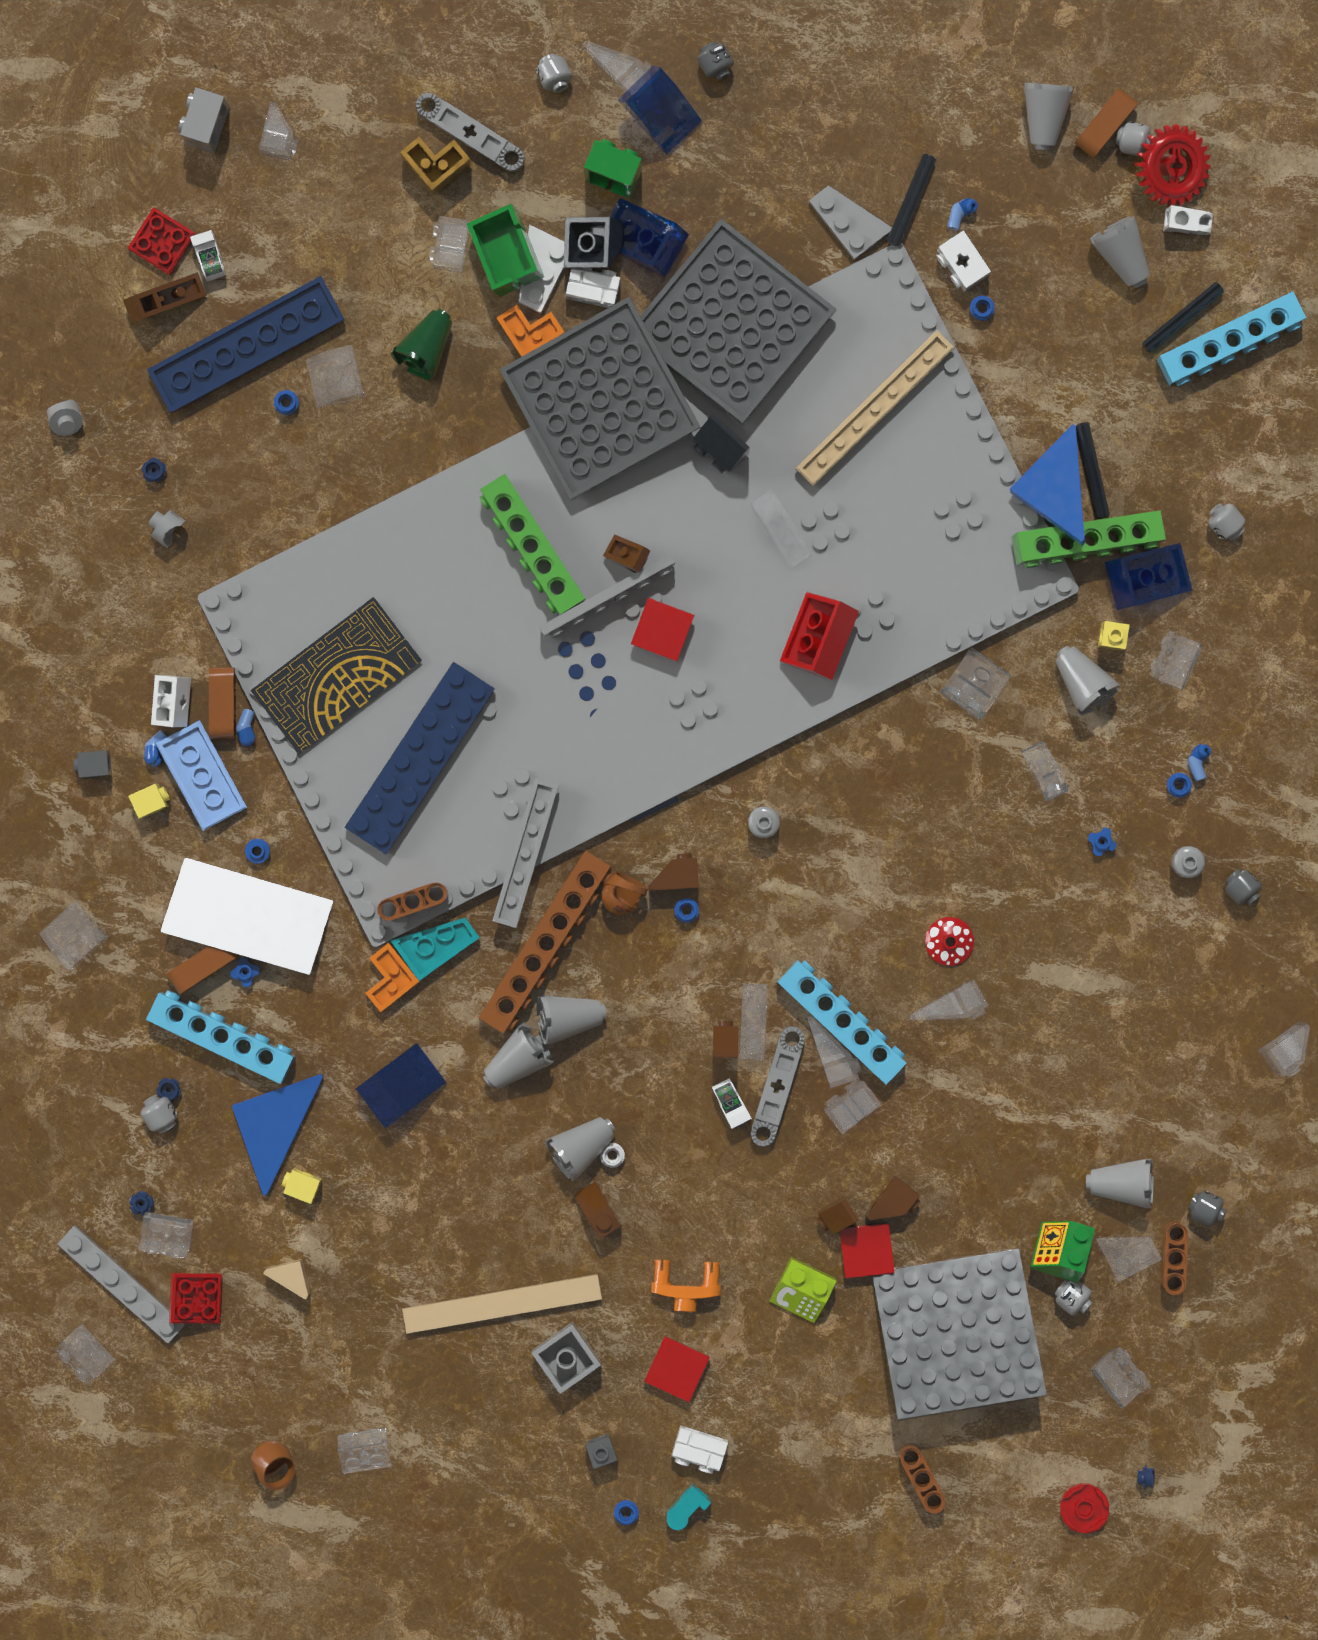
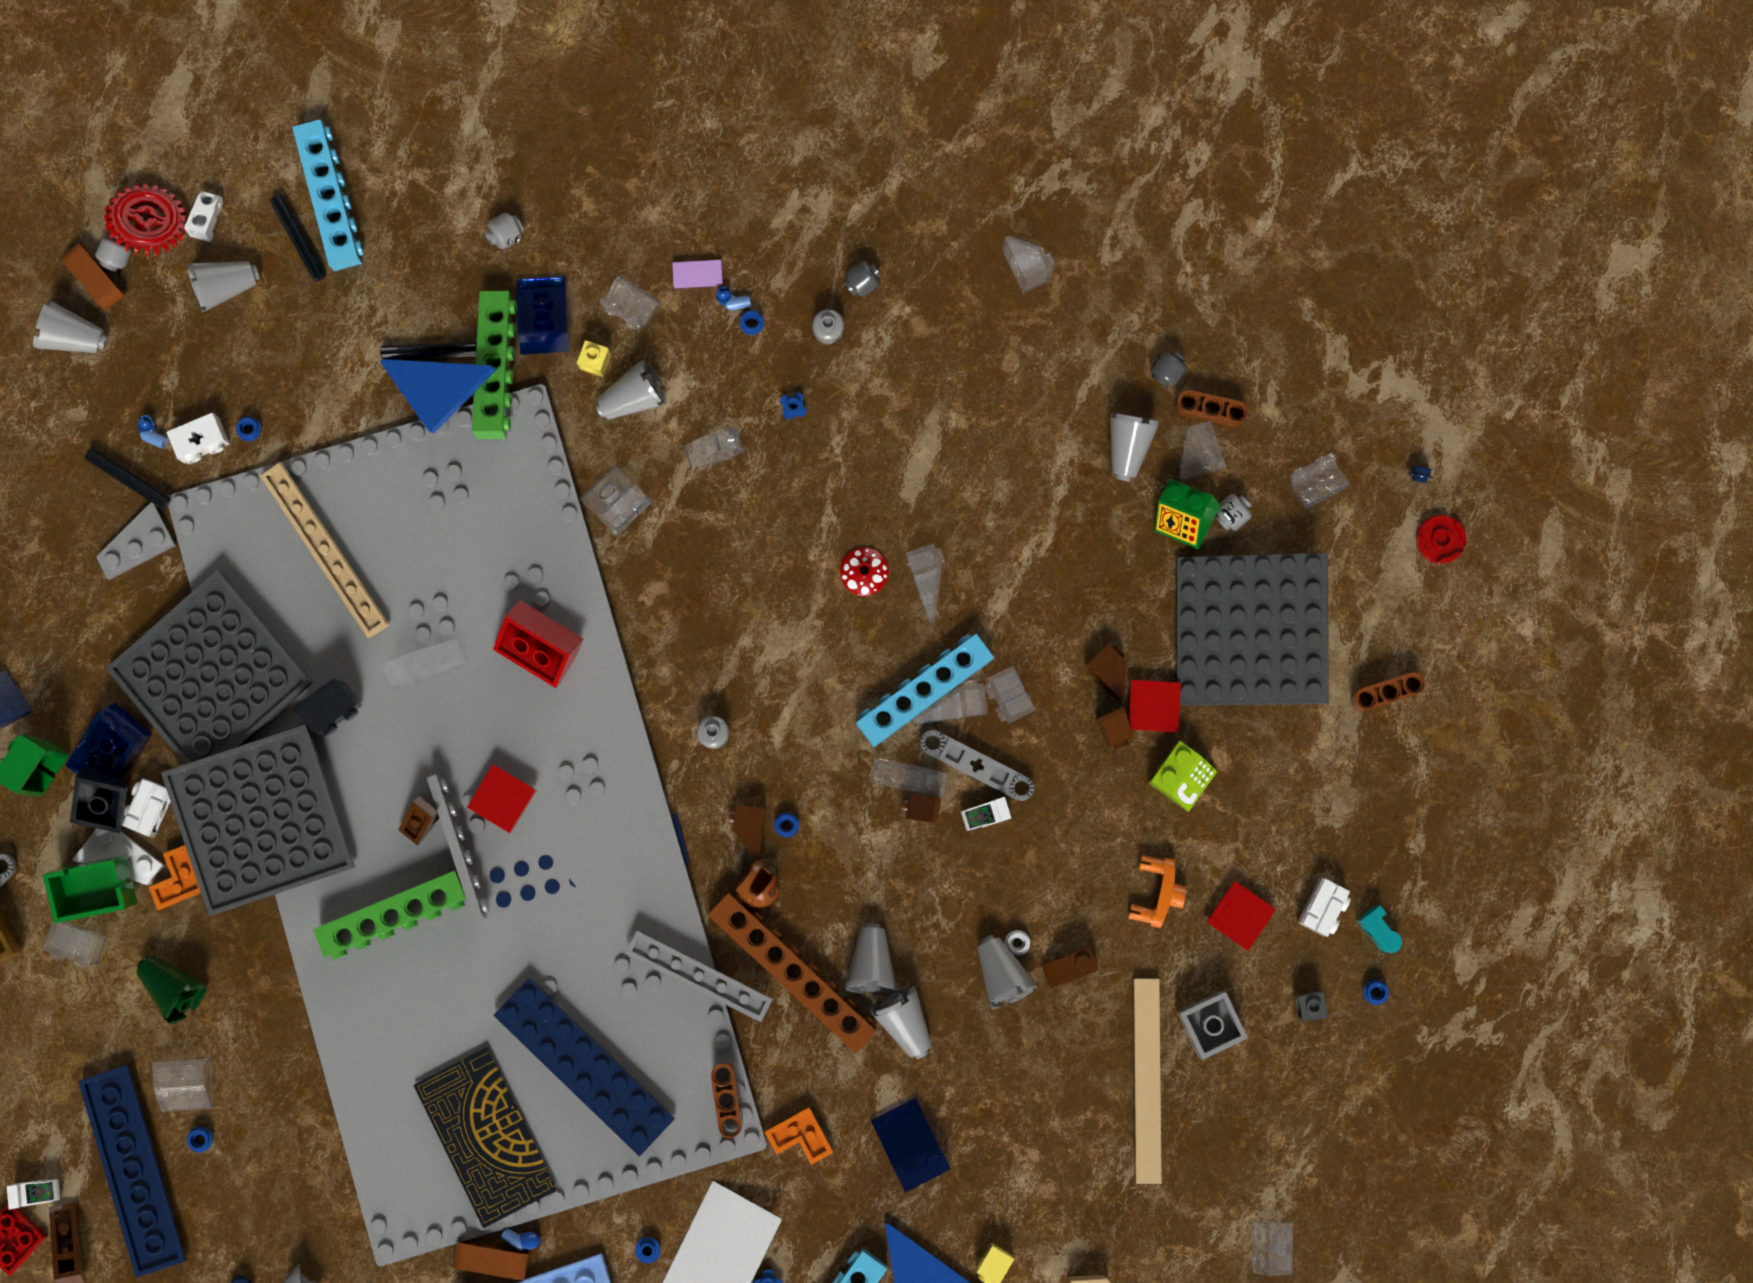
camera: 85 degrees left, 5 degrees down
(435, 946) = (777, 1085): teal wing -> none
(1218, 722) = (697, 274): none -> lavender tile

